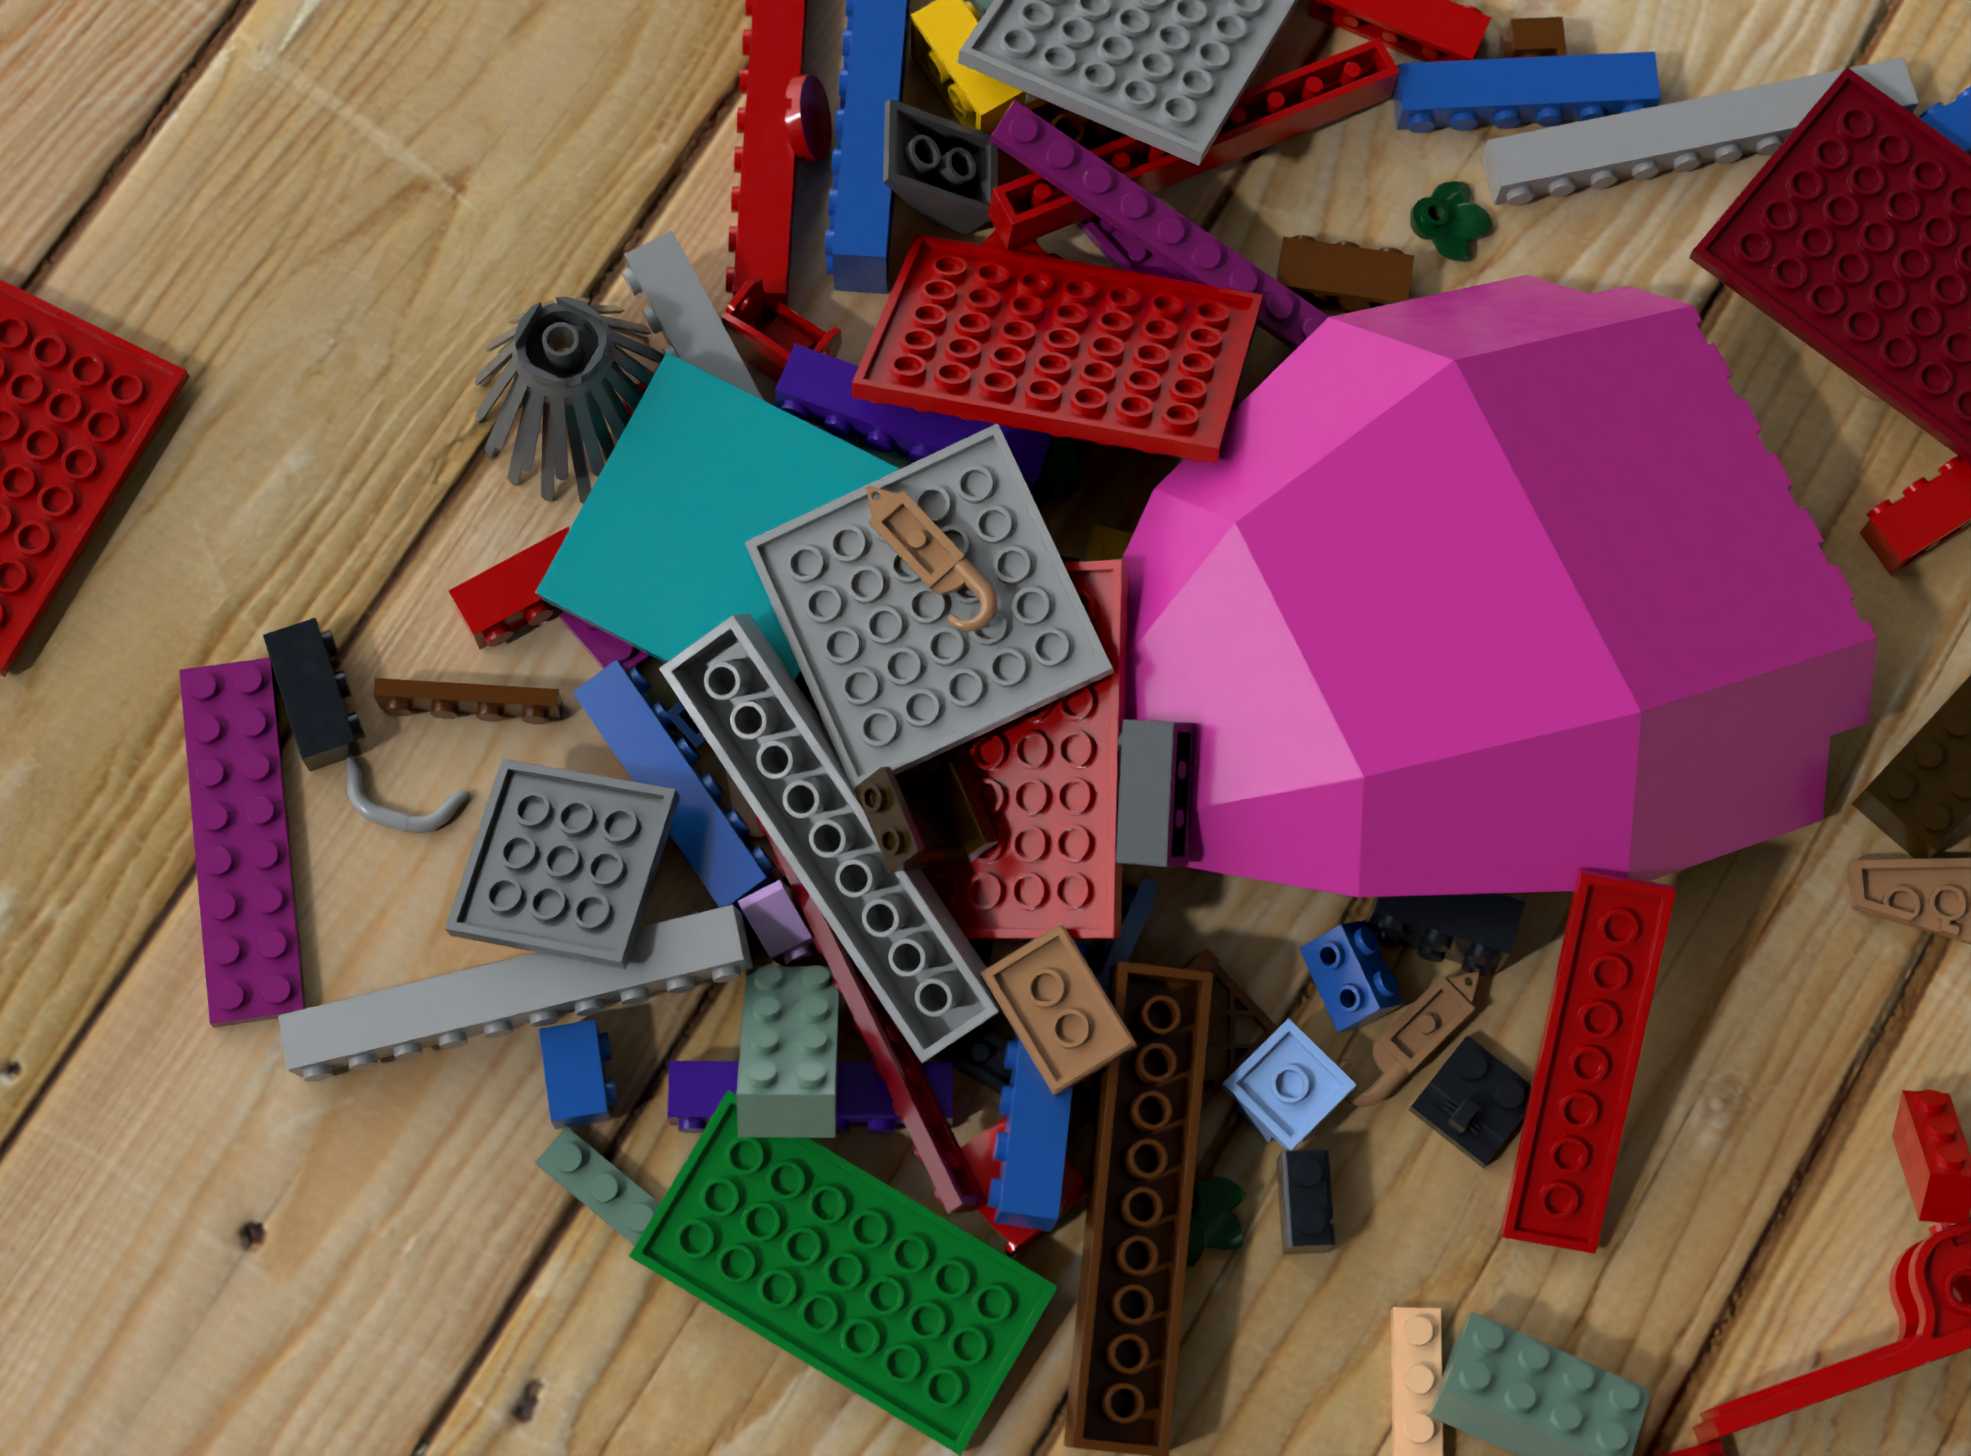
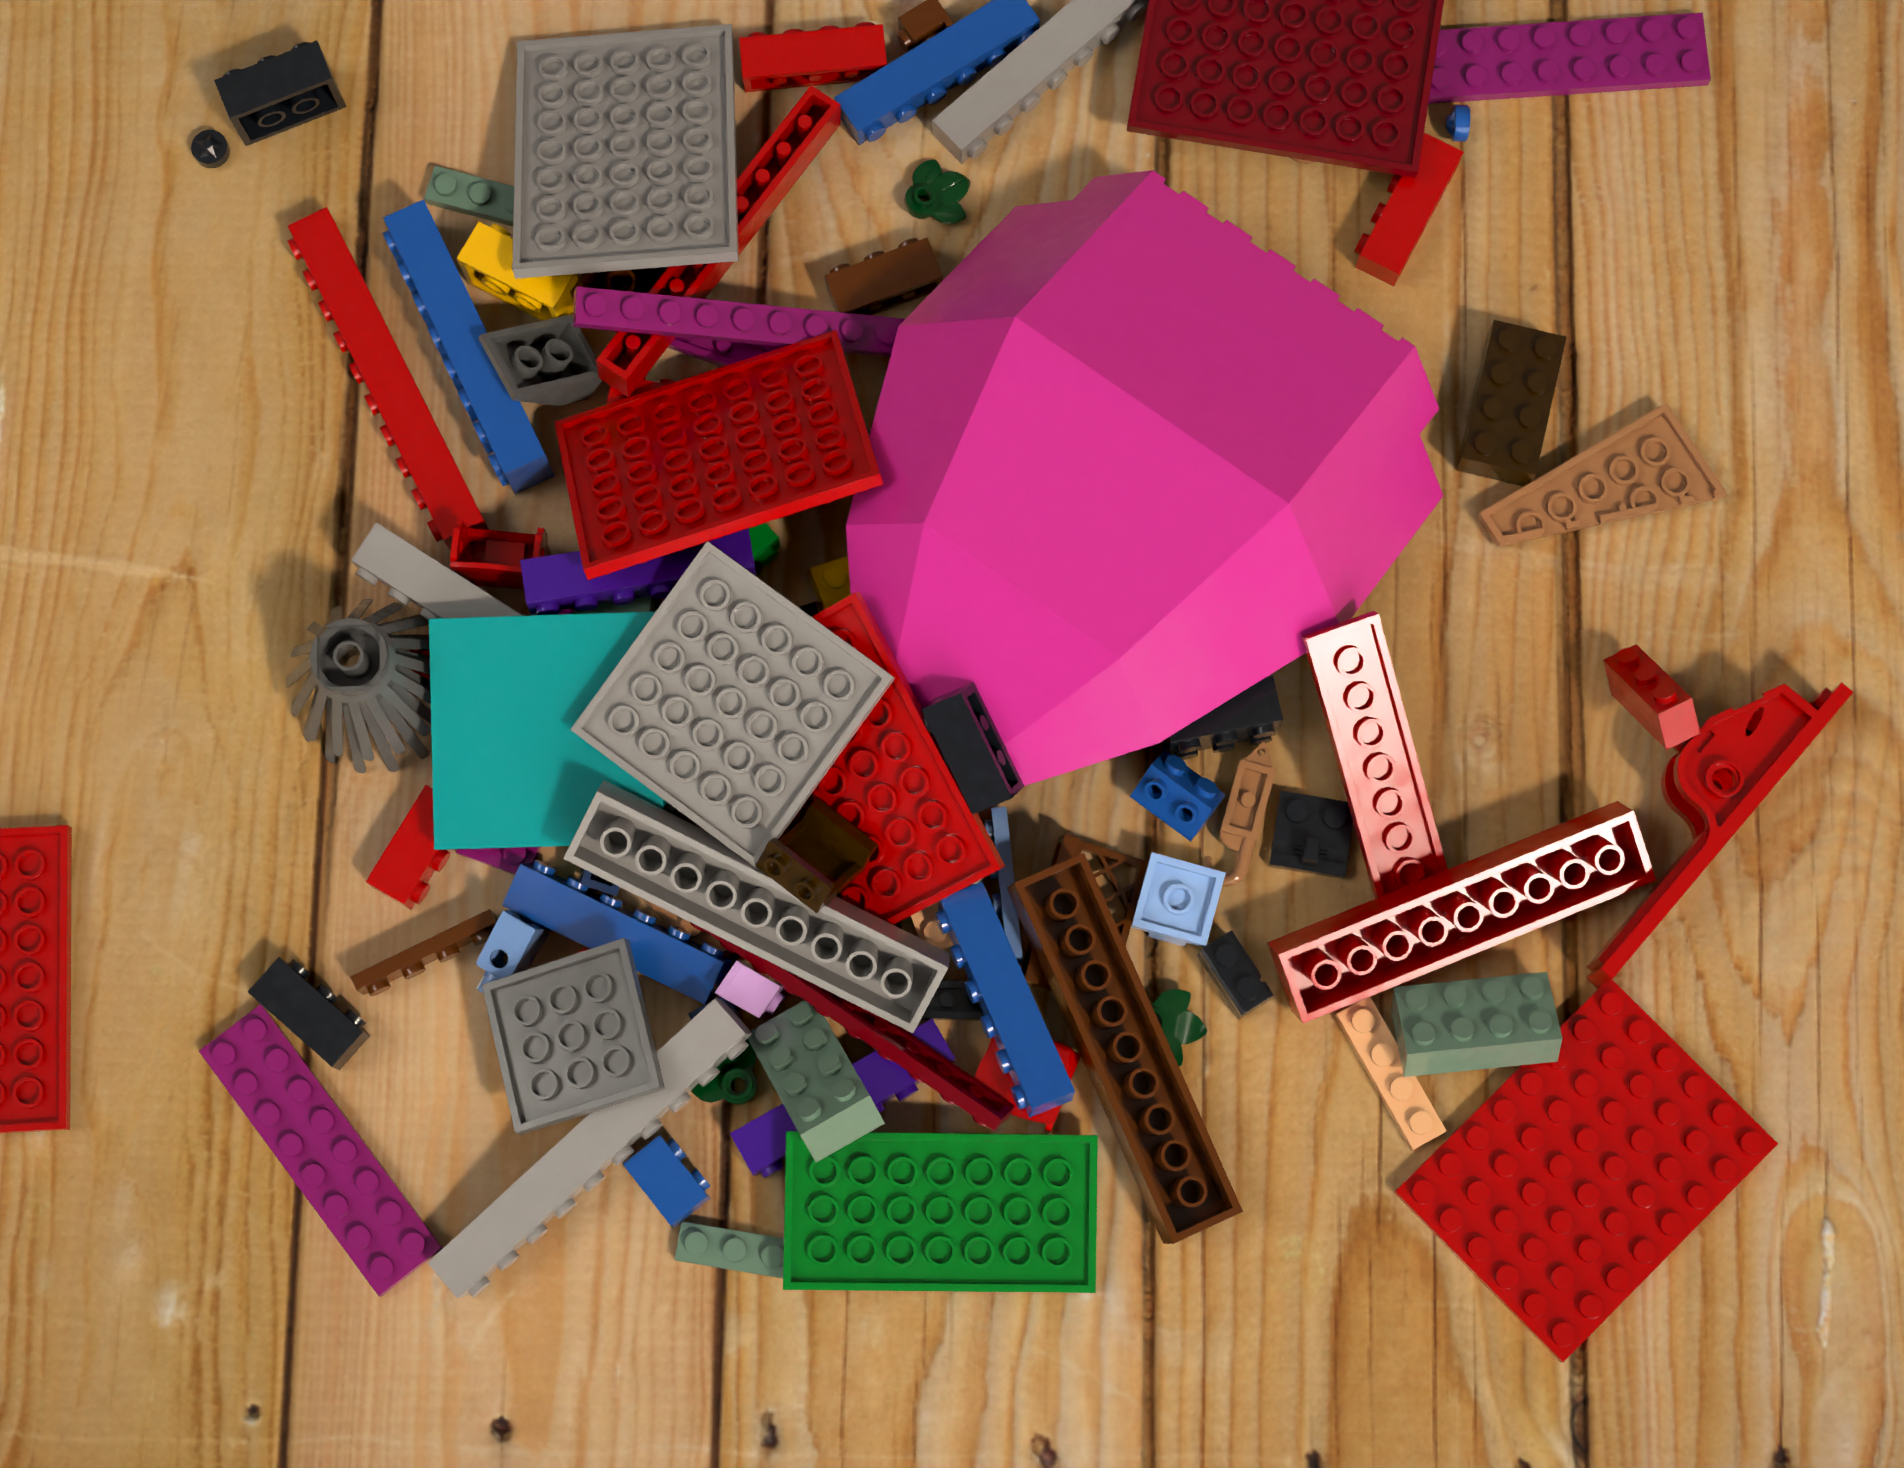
camera: 25 degrees left, 5 degrees up
(395, 818) = (424, 1069): light grey animal -> none
(559, 737) = (518, 939): none -> medium blue torso
(706, 997) = (720, 1086): none -> dark green plate
(809, 119) = (424, 376): red tile -> none
(930, 553) = (713, 665): medium nougat plate -> none
(1058, 1009) = (990, 941): medium nougat tile -> none
(1595, 1272) = (1461, 911): none -> red brick

